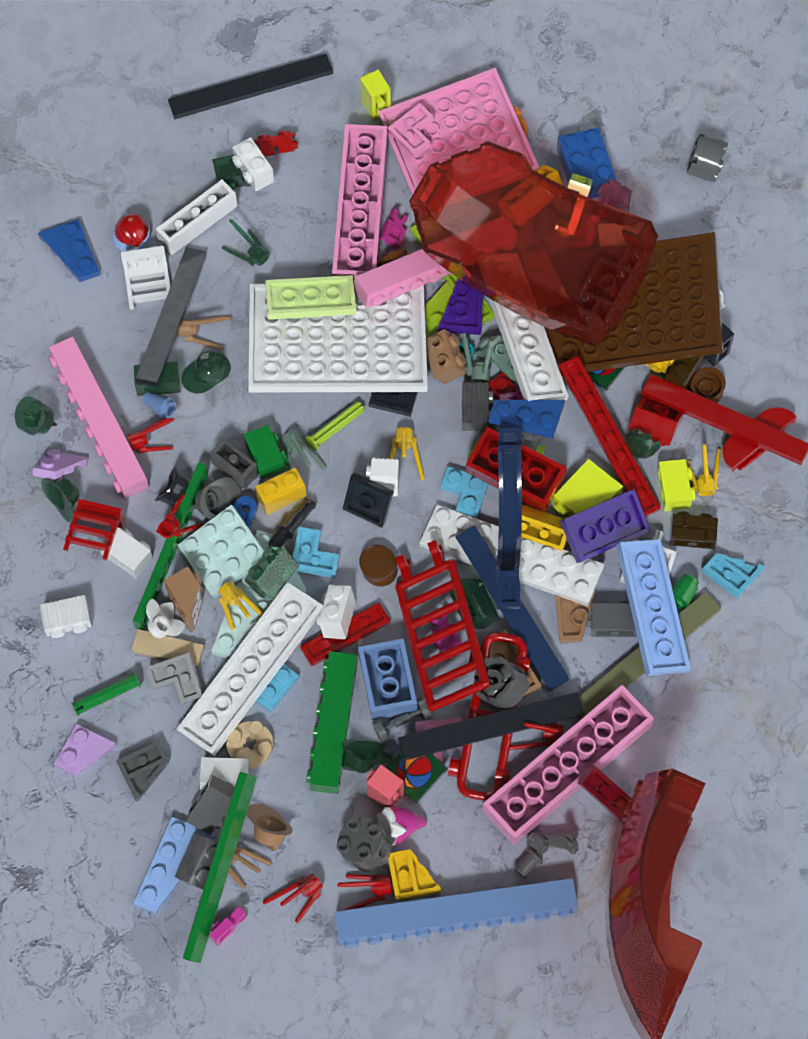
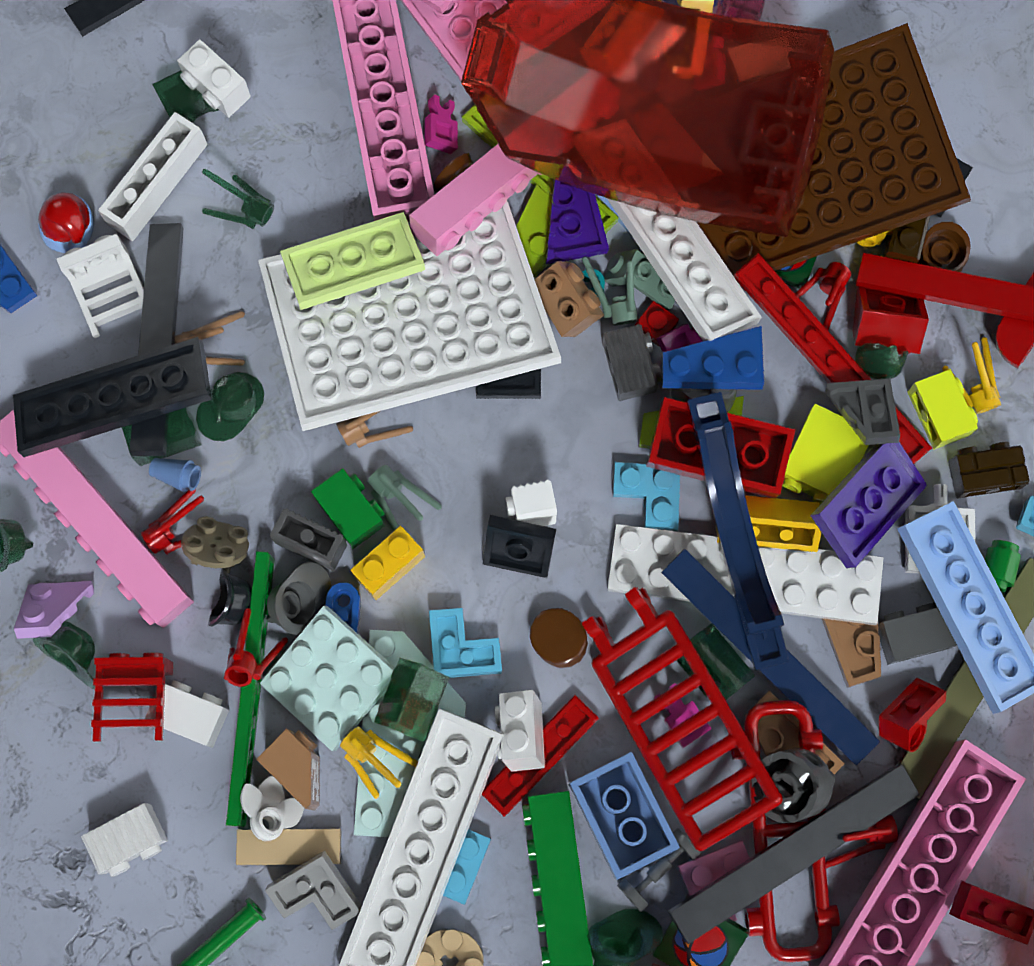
camera: 15 degrees left, 10 degrees up
(133, 343) = (111, 397): none -> black plate
(173, 452) = (215, 544): none -> dark tan plate
(283, 141) = (247, 32): red hinge -> none
(283, 404) = (355, 428): none -> medium nougat plant
(287, 530) = (417, 611): black axle -> none
(334, 425) = (437, 440): lime axle -> none
(404, 440) = (543, 438): yellow plant -> none
(588, 667) = (907, 716): none -> red plate
(621, 469) = (867, 409): none -> dark grey wing
(625, 388) = (833, 283): none -> red plant

